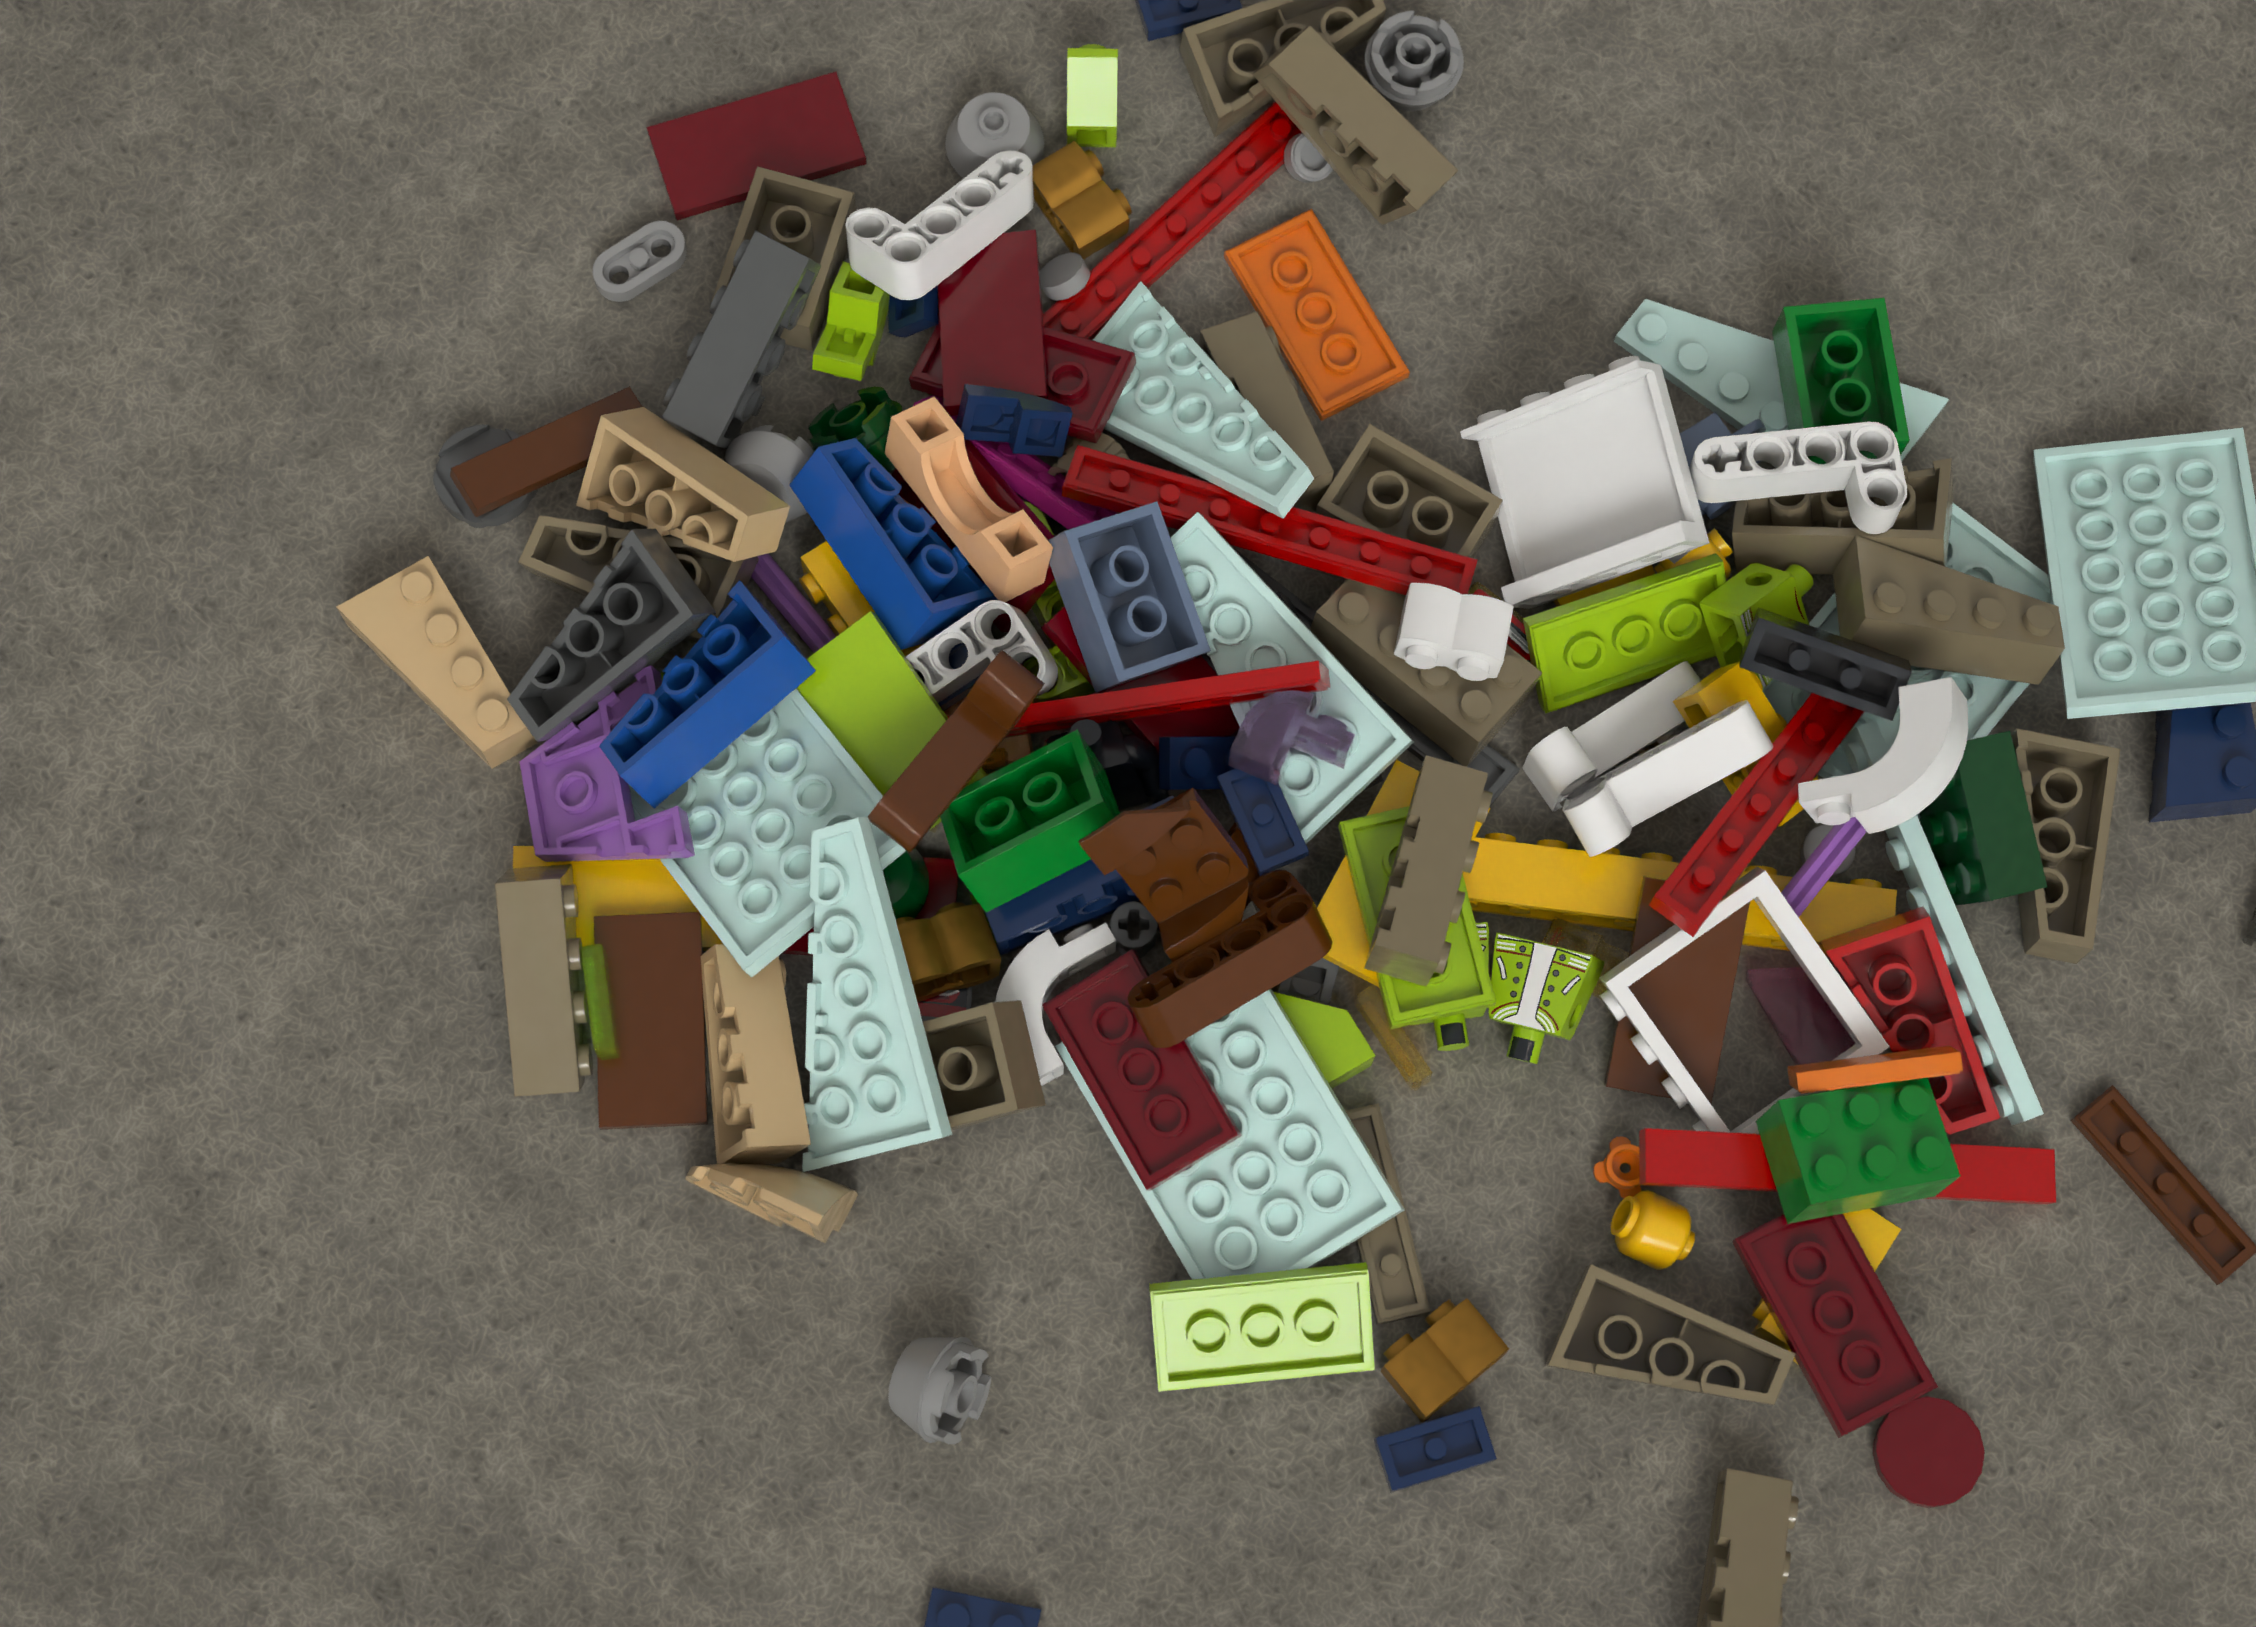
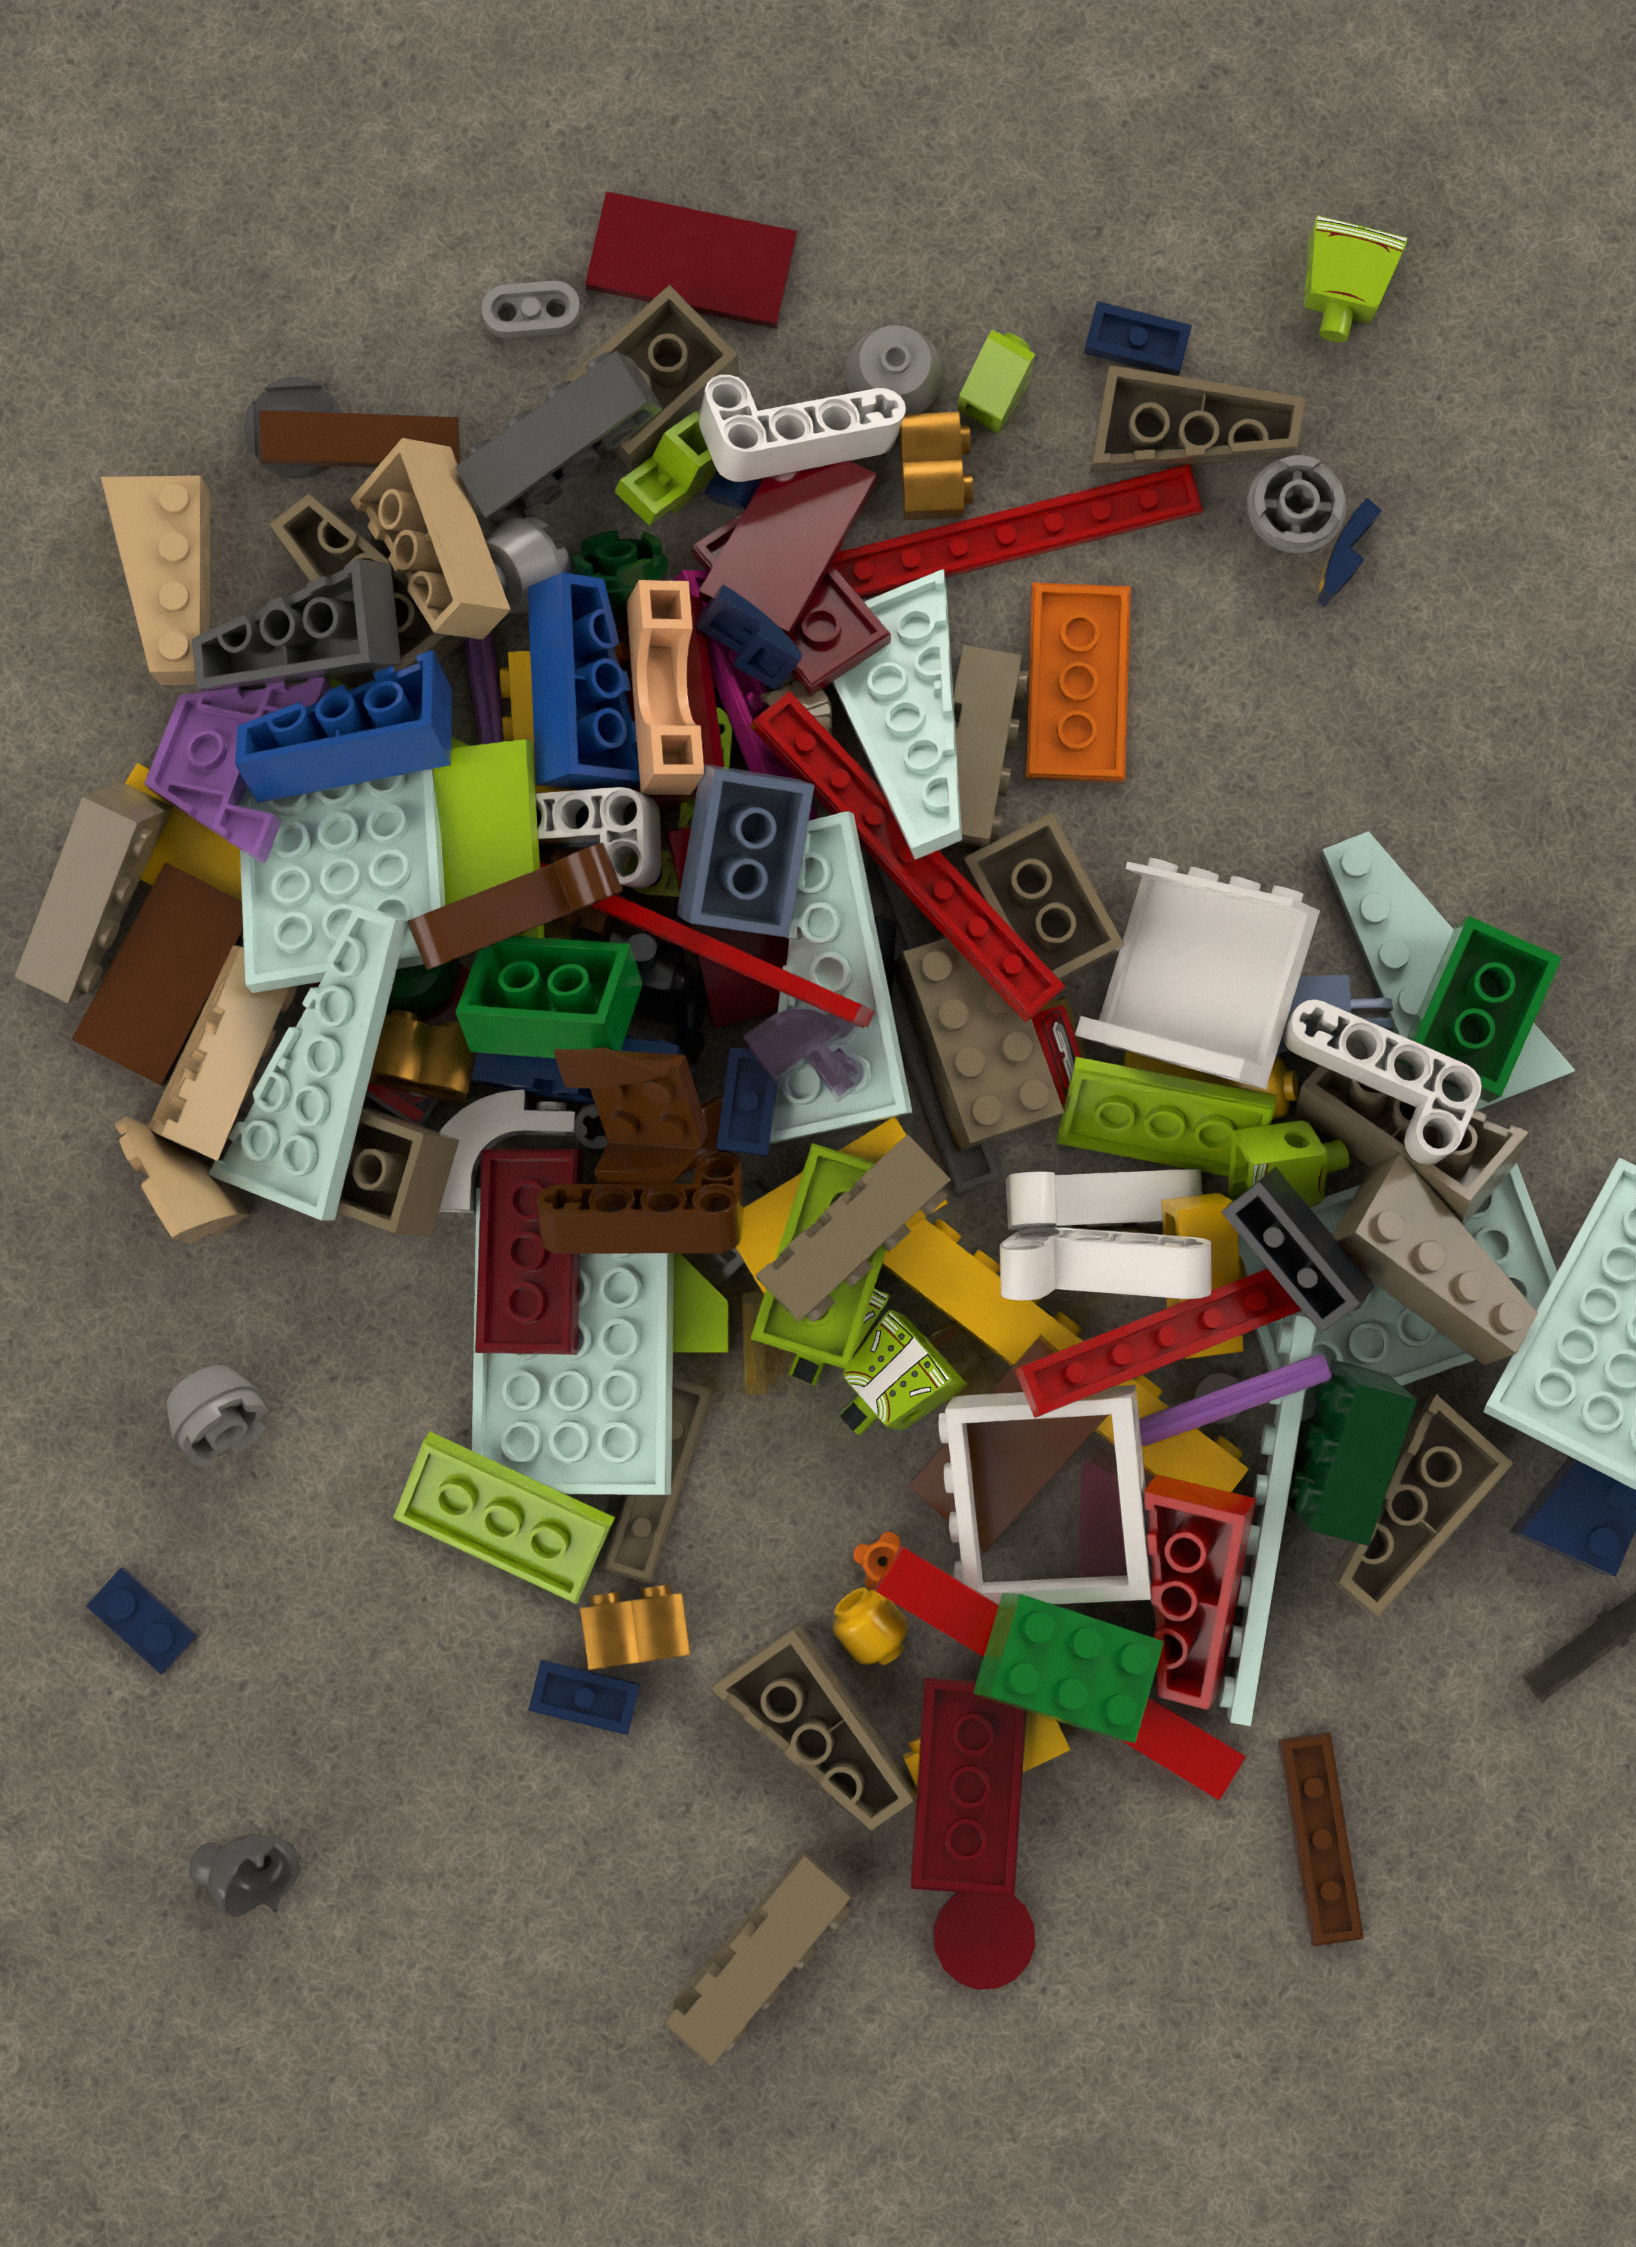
camera: 30 degrees right, 10 degrees up
(600, 1002) = (125, 939): clear neon green tile -> none
(1064, 276) = (881, 527): light grey tile -> none
(1193, 761) = (727, 1016): dark blue plate -> none
(1304, 160) = (1157, 538): light grey tile -> none
(1354, 127) = (1202, 536): dark tan wedge -> none
(1453, 631) = (1002, 1038): white brick -> none
(1478, 85) = (1343, 560): none -> dark blue slope
(1875, 1069) = (1122, 1613): orange tile -> none
(1909, 774) = (1311, 1387): white arch -> none

